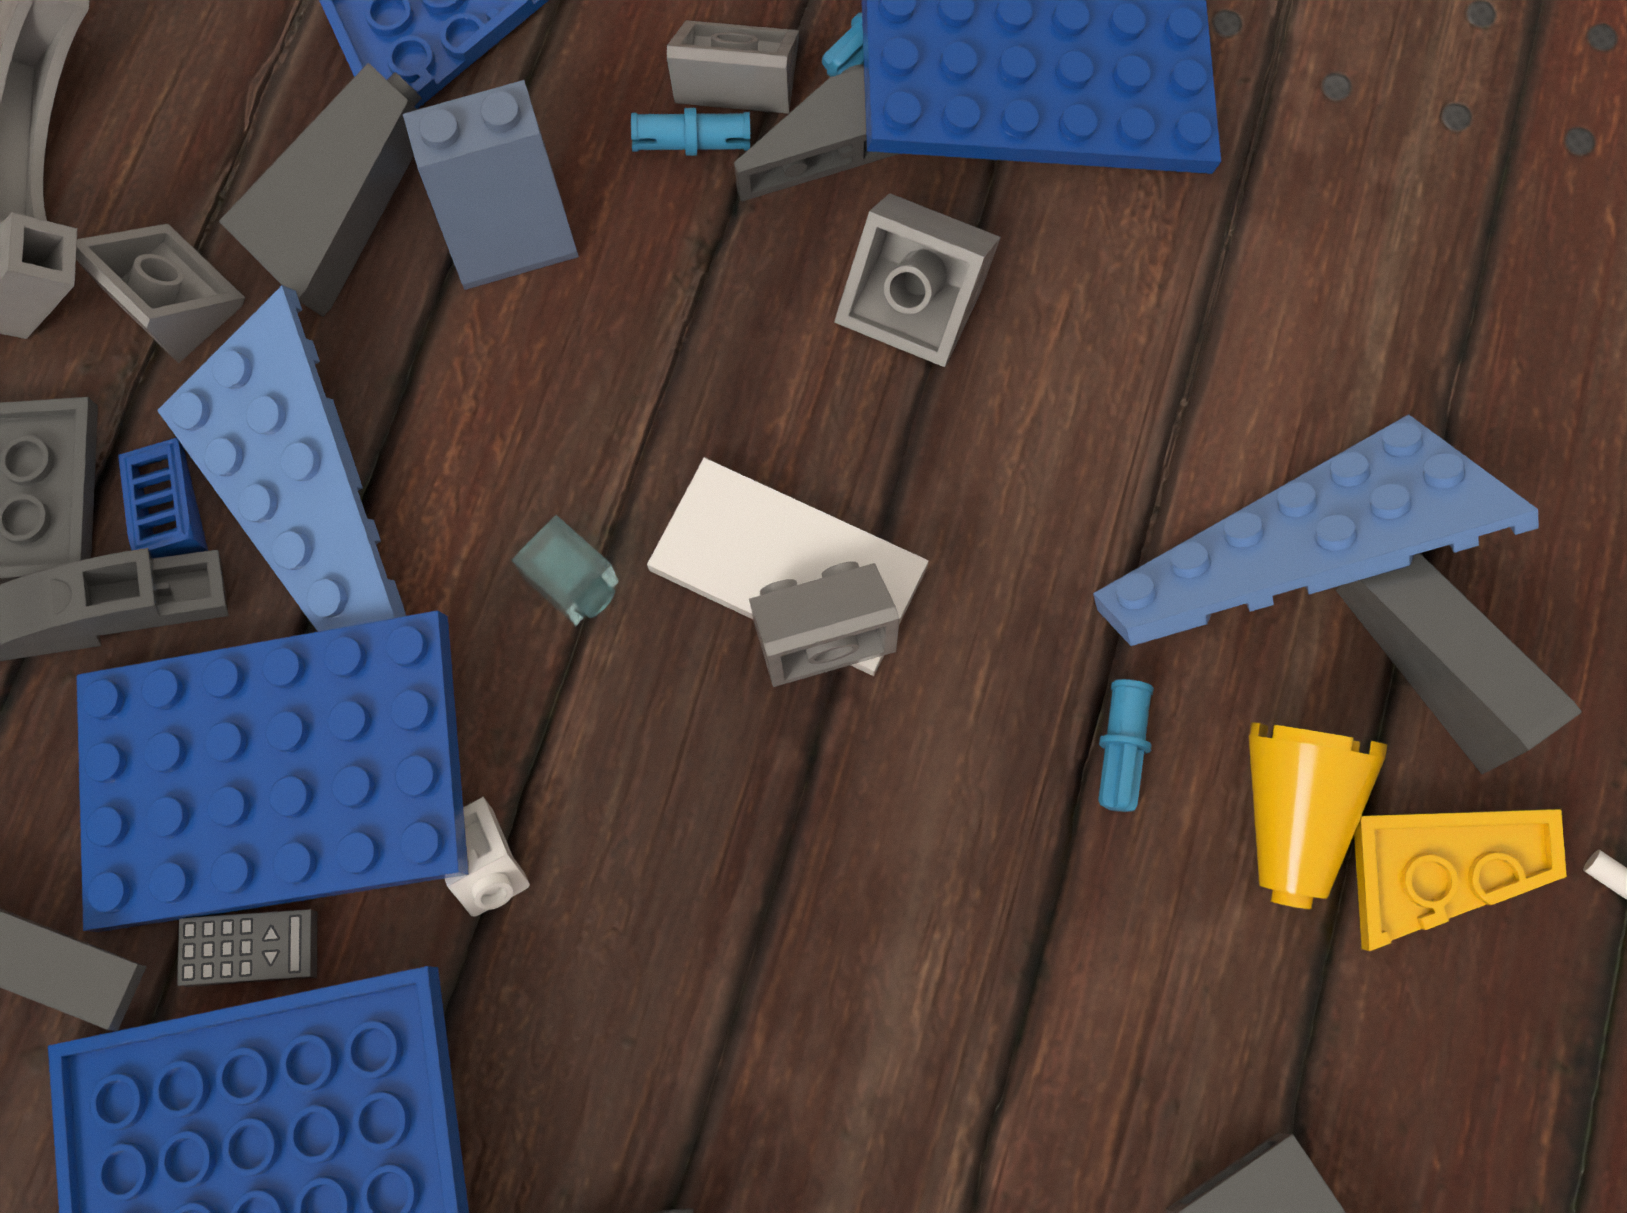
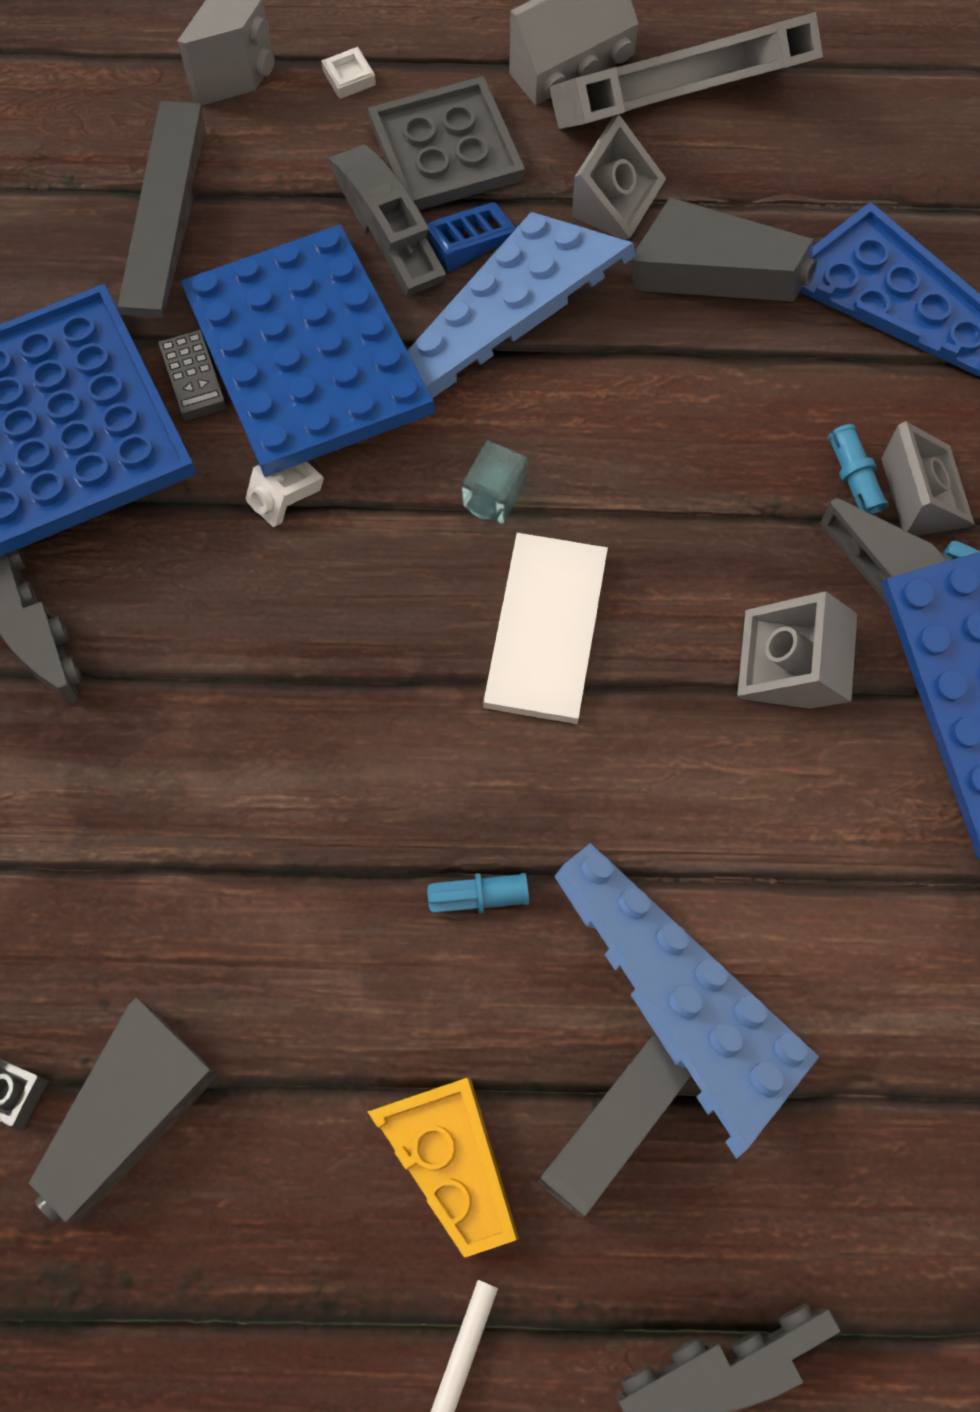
camera: 70 degrees right, 5 degrees down
(491, 184) = (758, 347): sand blue slope -> none
(824, 622) = (500, 647): light grey slope -> none
(1307, 807) = (466, 1033): yellow cone -> none

